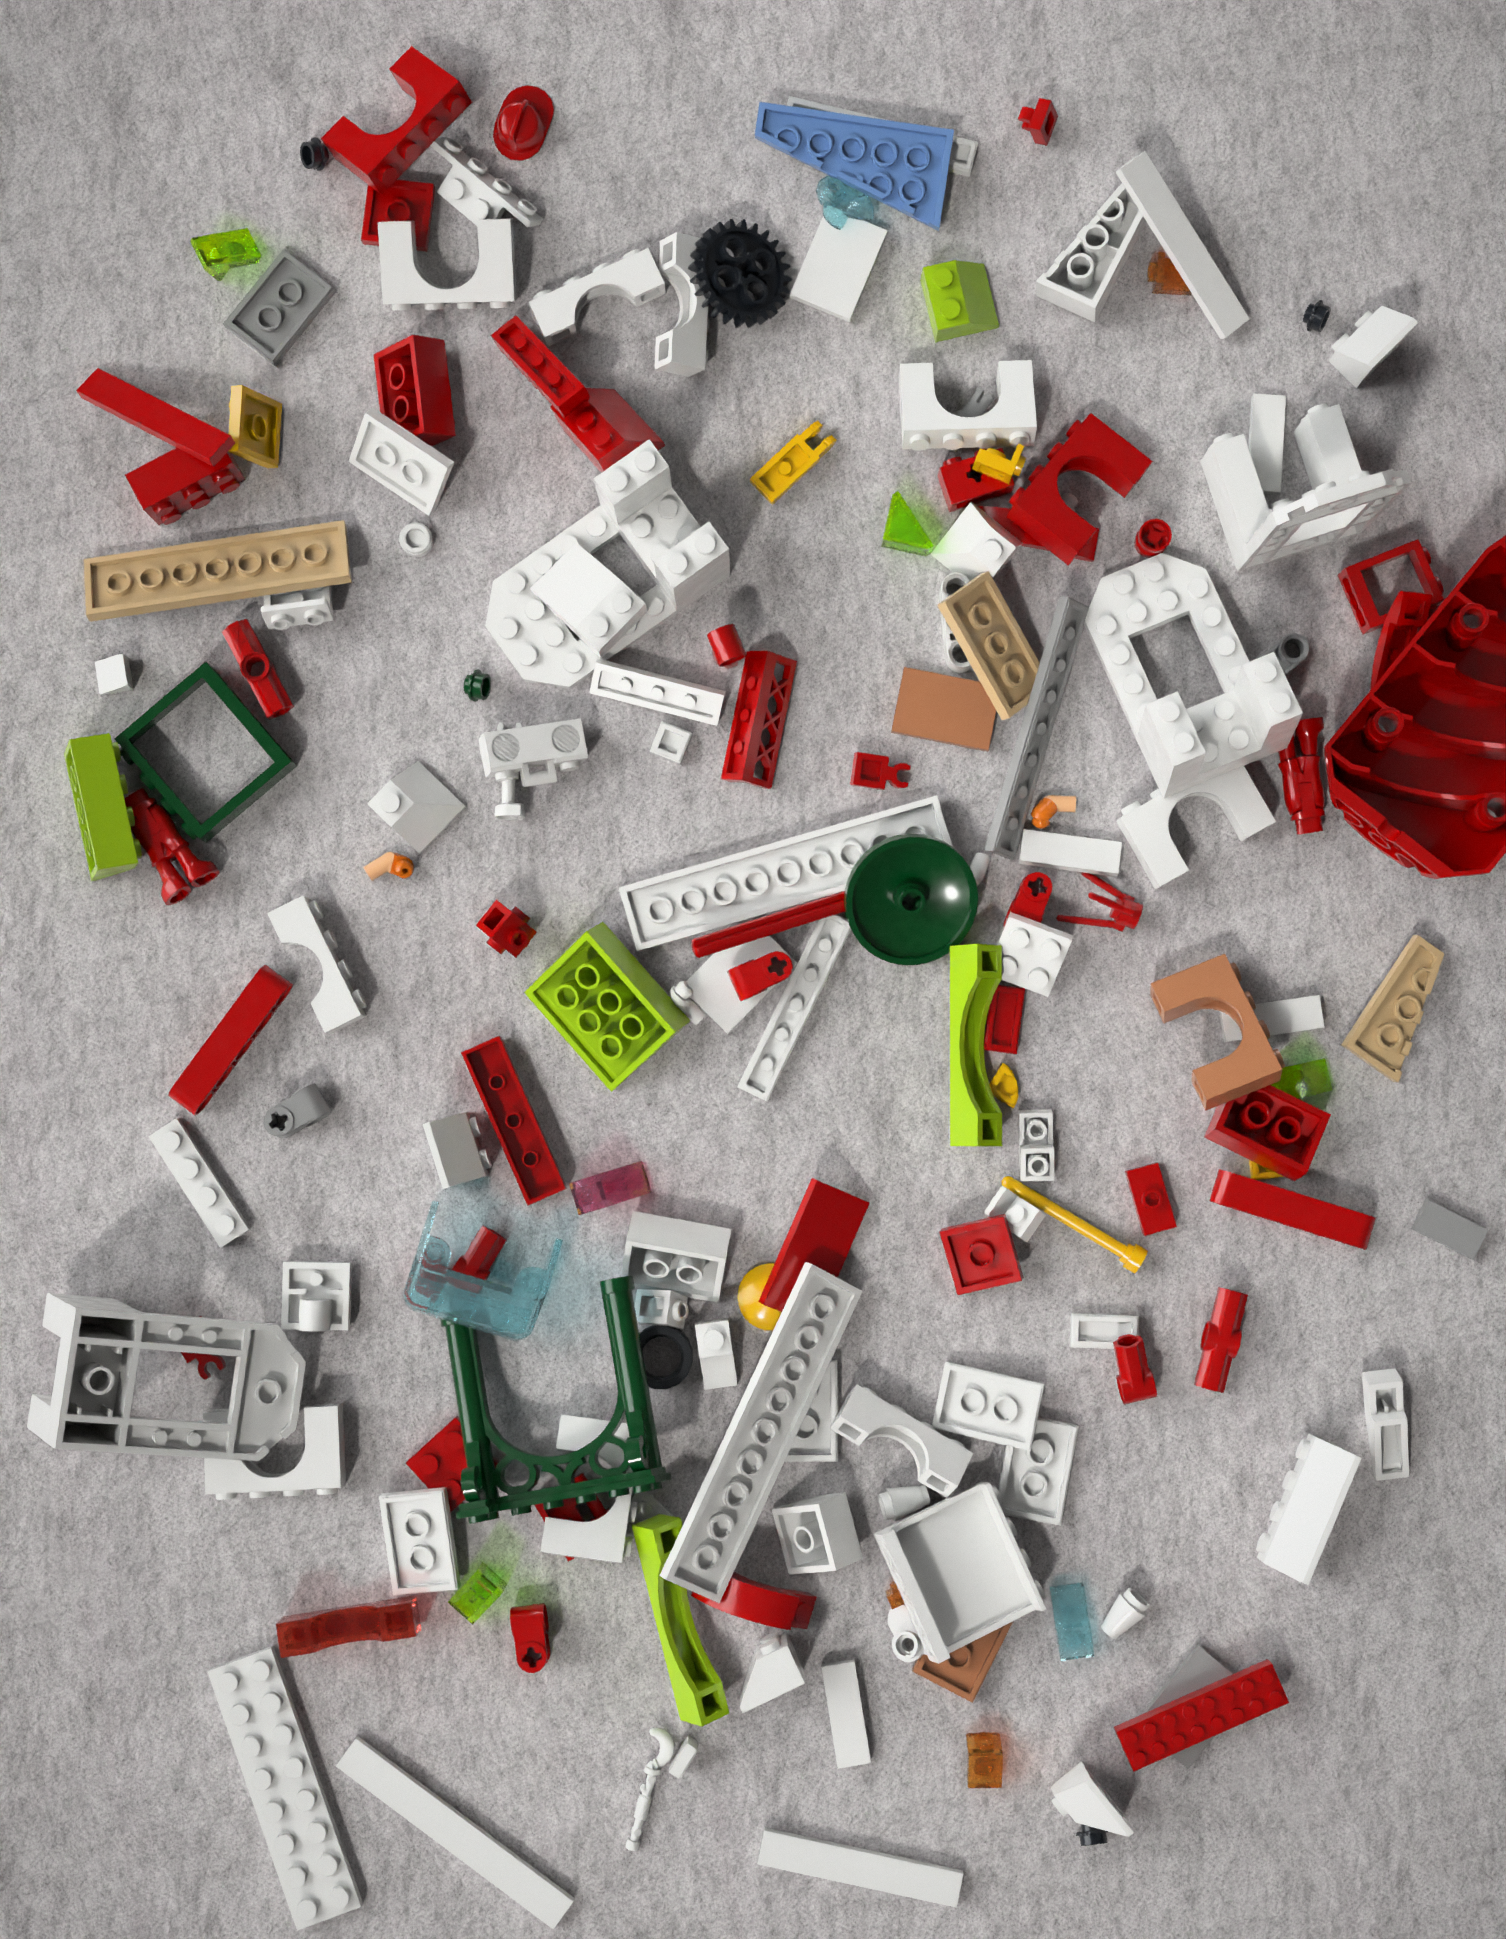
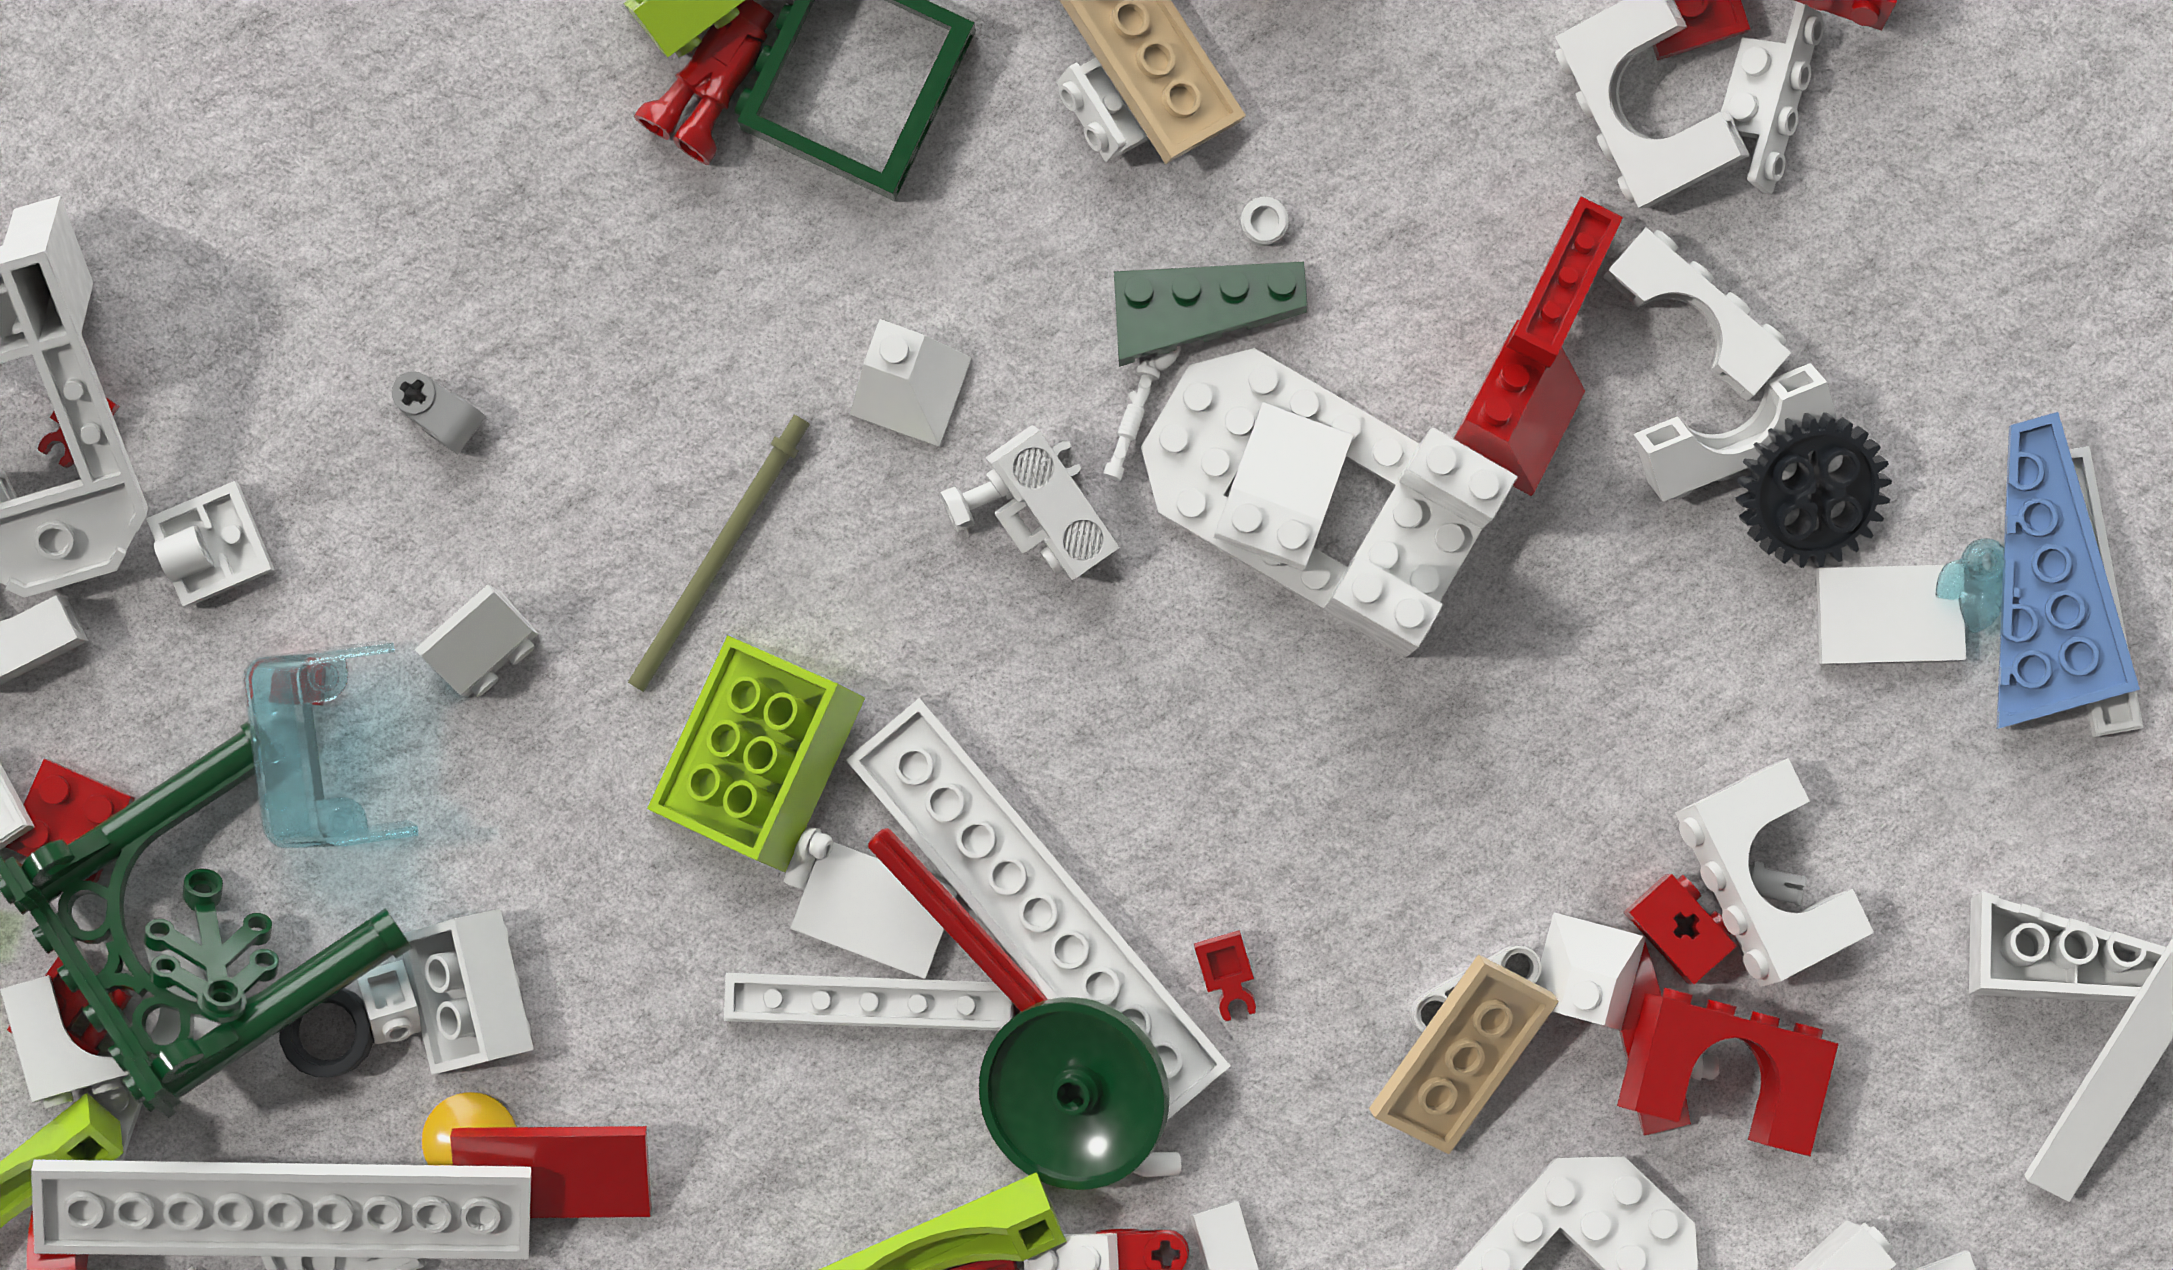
camera: 65 degrees right, 0 degrees up
(199, 1182) = (291, 325): white plate -> none
(230, 1040) = (494, 280): red beam -> none
(249, 651) = (1014, 68): red piece -> none
(336, 1002) = (607, 395): white arch -> none
(390, 863) = (819, 383): arm -> none
(400, 461) = (1355, 155): white plate -> none
(416, 387) = (1456, 131): red slope -> none
(422, 904) = (783, 449): none -> olive bar
(447, 609) = (1190, 304): none -> wing
(477, 685) = (1105, 390): dark green plate -> none
(478, 654) = (1133, 415): none -> white piece
(481, 1254) = (354, 734): red piece -> none
(506, 929) = (794, 584): red brick -> none
(514, 1120) = (551, 699): red piece -> none
(523, 122) = (1890, 108): red piece -> none
(608, 1410) = (219, 997): none -> dark green plant
(610, 1188) = (518, 865): clear pink slope -> none
(657, 692) = (1202, 632): white plate -> none
(671, 742) = (1144, 680): white tile -> none
(716, 1353) = (363, 1101): white arch -> none
(726, 646) = (1301, 697): red piece -> none
(753, 716) = (1226, 774): red fence -> none
(755, 977) = (878, 933): red piece -> none
(790, 464) = (1589, 671): yellow hinge -> none
(904, 531) = (1567, 862): clear neon green slope -> none
(944, 710) = (1351, 1023): nougat tile -> none
(958, 299) = (1915, 797): lime slope -> none
(995, 465) = (1706, 945): yellow bracket -> none
(1036, 727) = (1381, 1159): light grey tile -> none
(1049, 806) = (1283, 1222): arm -> none
(1156, 533) = (1715, 1207): red wheel -> none
(1165, 277) = (2073, 1061): clear orange bracket -> none

